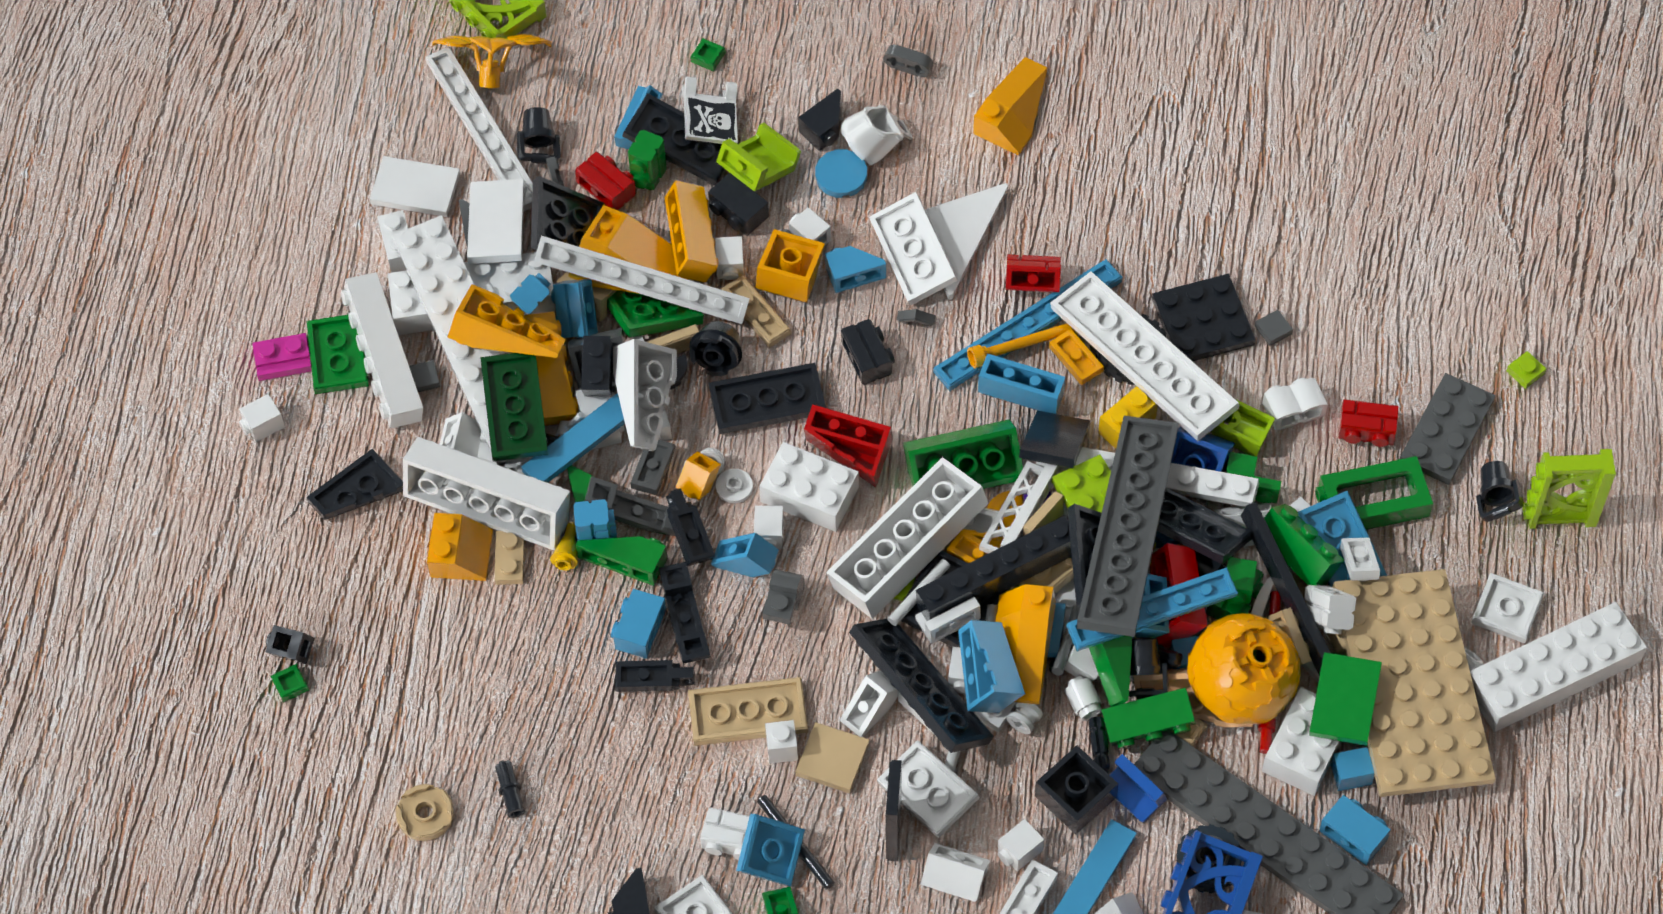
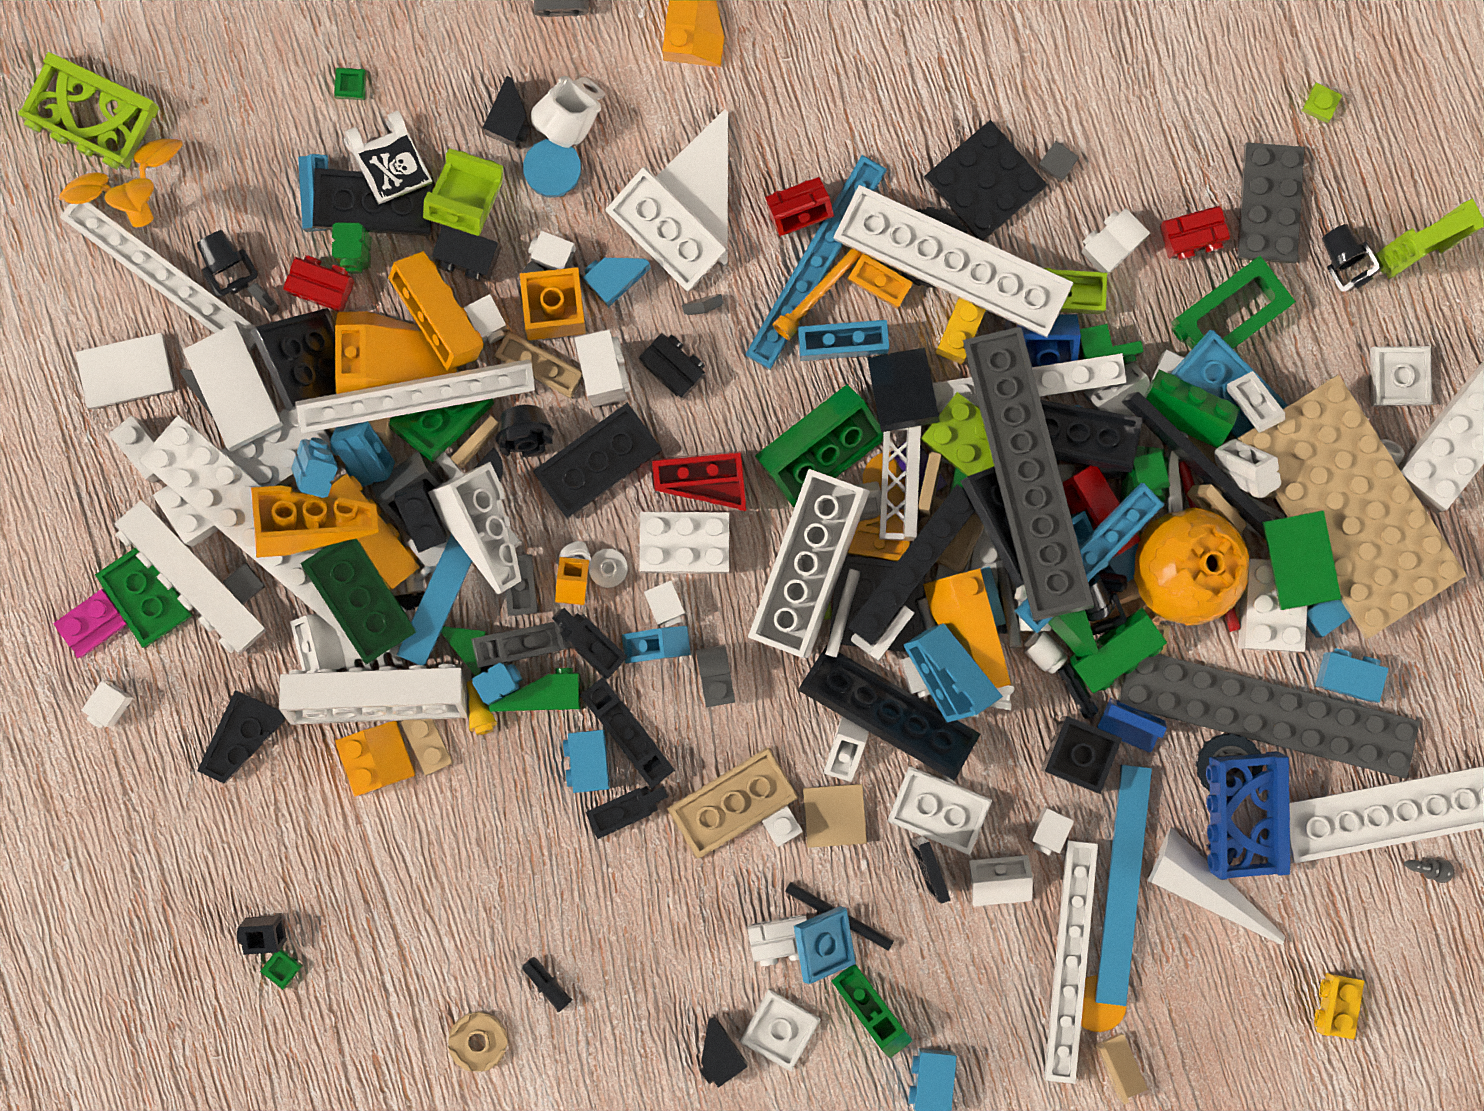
camera: 25 degrees left, 25 degrees up
(806, 320) = (599, 361): none -> white brick

